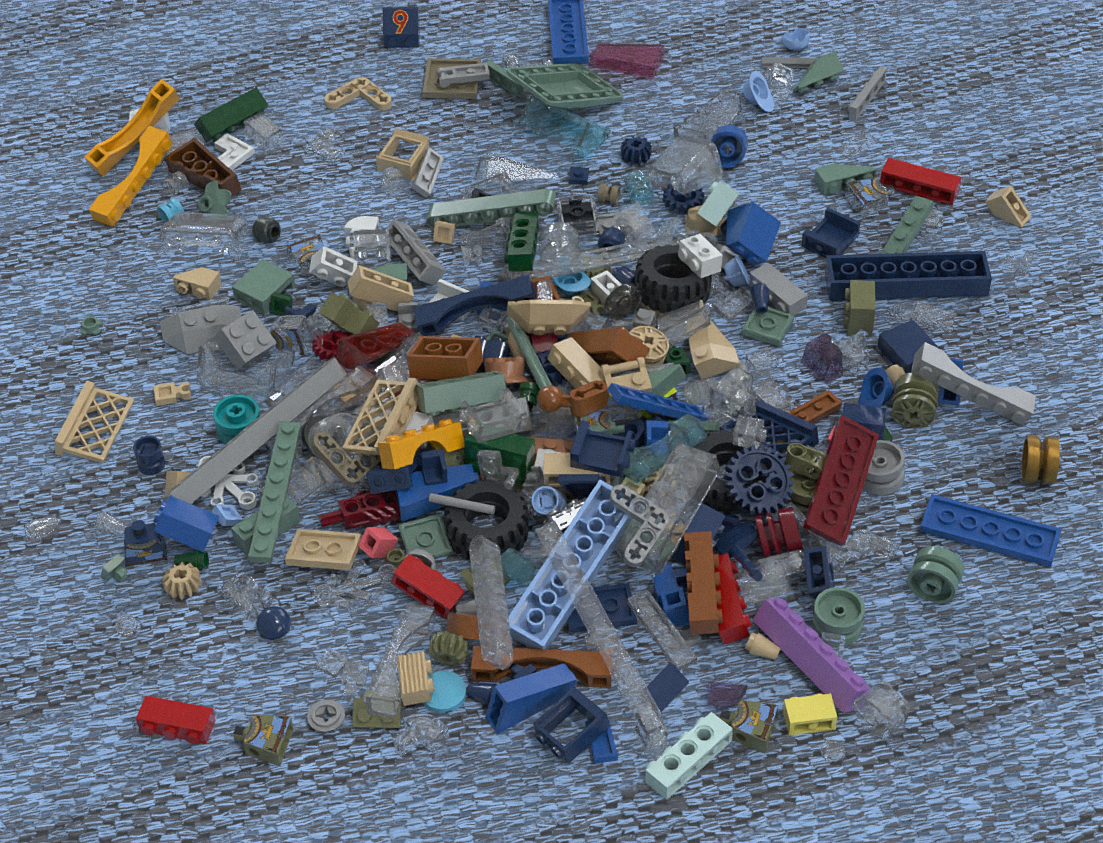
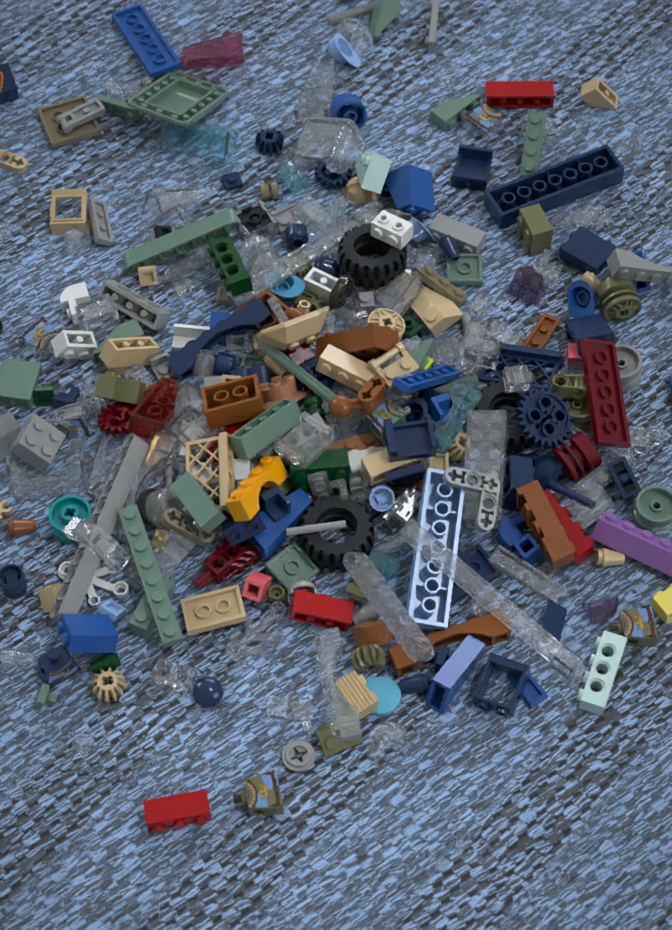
camera: 25 degrees left, 10 degrees up
(187, 412) = (20, 527): none -> dark orange cone
(243, 445) = (98, 541): none -> clear arch
(354, 437) = (197, 503): none -> sand green brick
(447, 322) = (204, 363): none -> clear brick
(468, 329) = (224, 364): none -> dark blue head
(733, 330) = (442, 285): none -> dark tan plate

